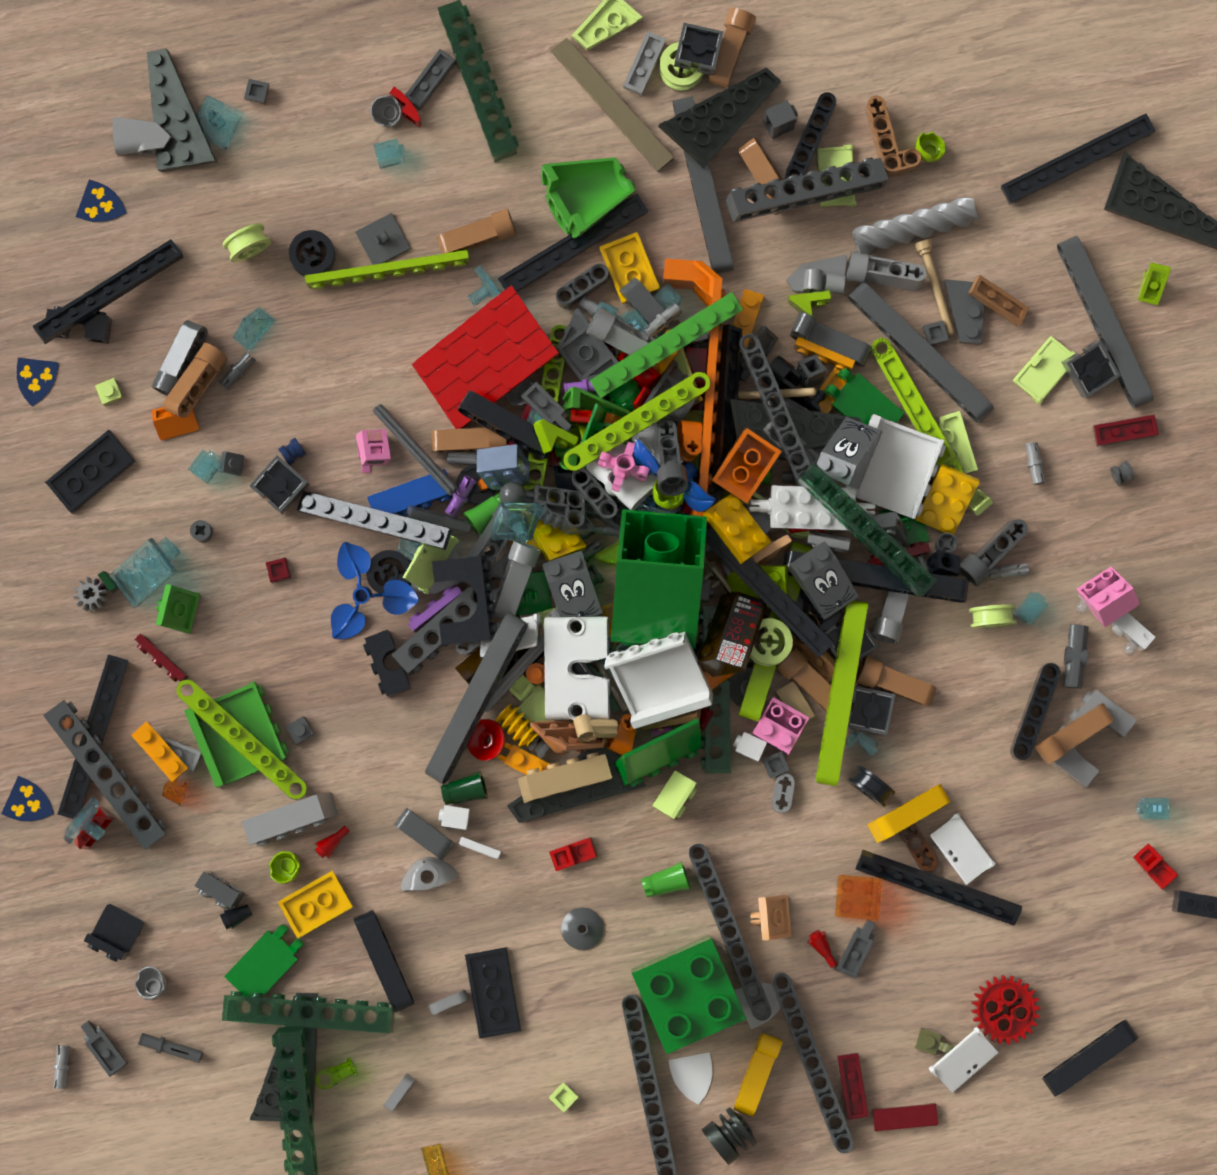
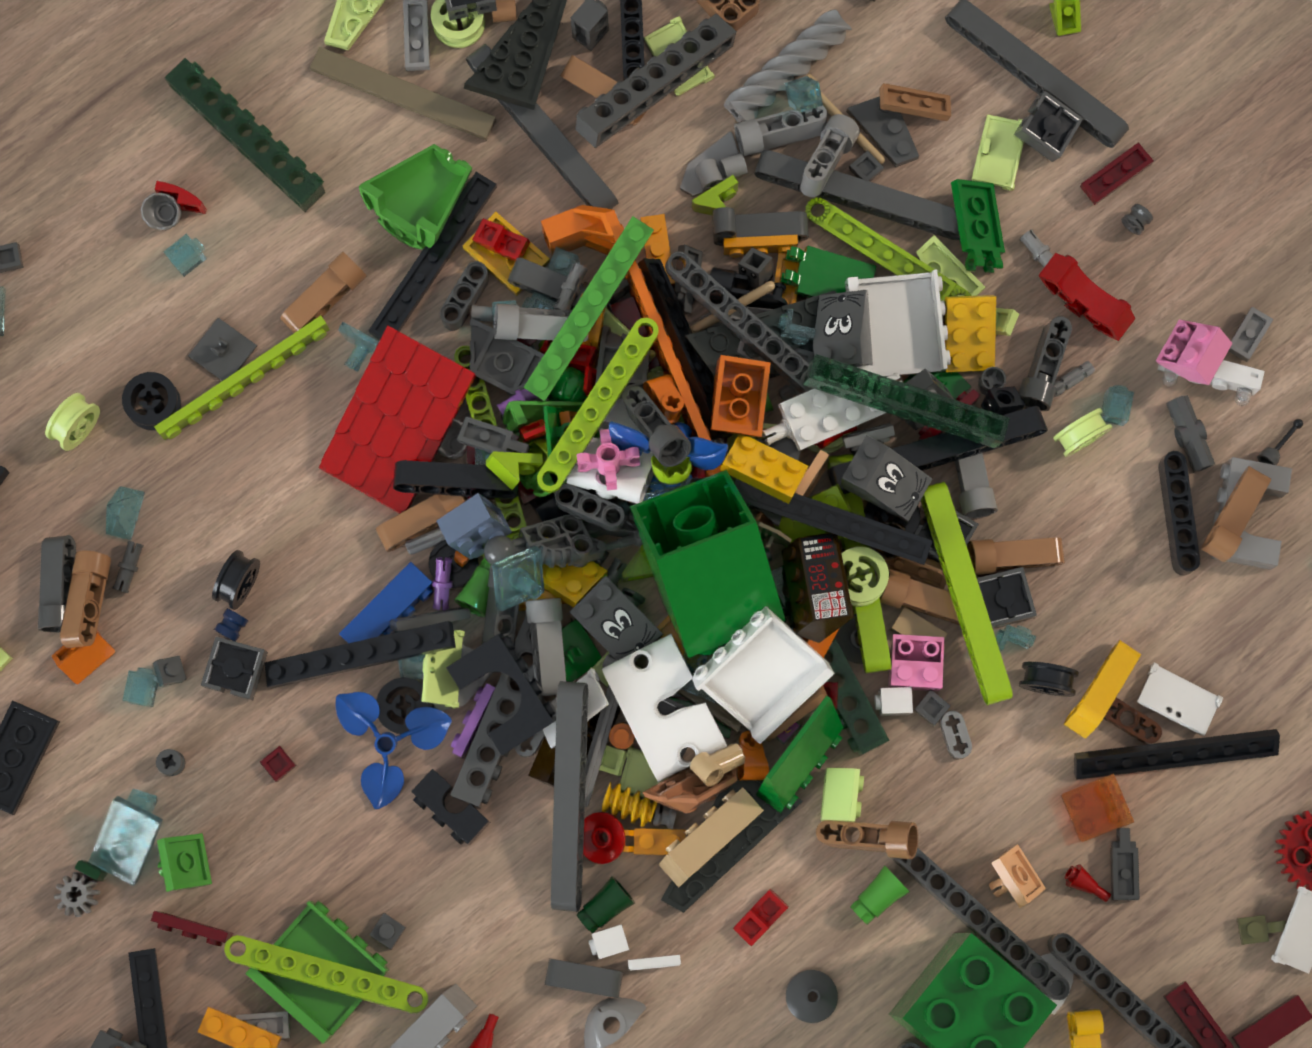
camera: 30 degrees left, 5 degrees down
(311, 420) = (236, 579): none -> black wheel
(373, 448) = (319, 578): bright pink piece -> none
(414, 448) = (367, 556): dark grey axle -> none
(430, 79) = (193, 156): dark grey tile -> none
(629, 257) = (500, 241): none -> red slope
(697, 846) = (896, 839): none -> medium nougat beam
(815, 439) = (798, 333): none -> clear light blue bracket
(915, 254) = (804, 94): none -> clear light blue brick
(922, 301) = (836, 139): none -> light grey beam
(998, 419) = (978, 224): none -> green tile
(1050, 515) = (1084, 297): none -> red brick
(1127, 703) = (1272, 455): none -> hinge
(1161, 603) = (1249, 334): none -> light grey plate

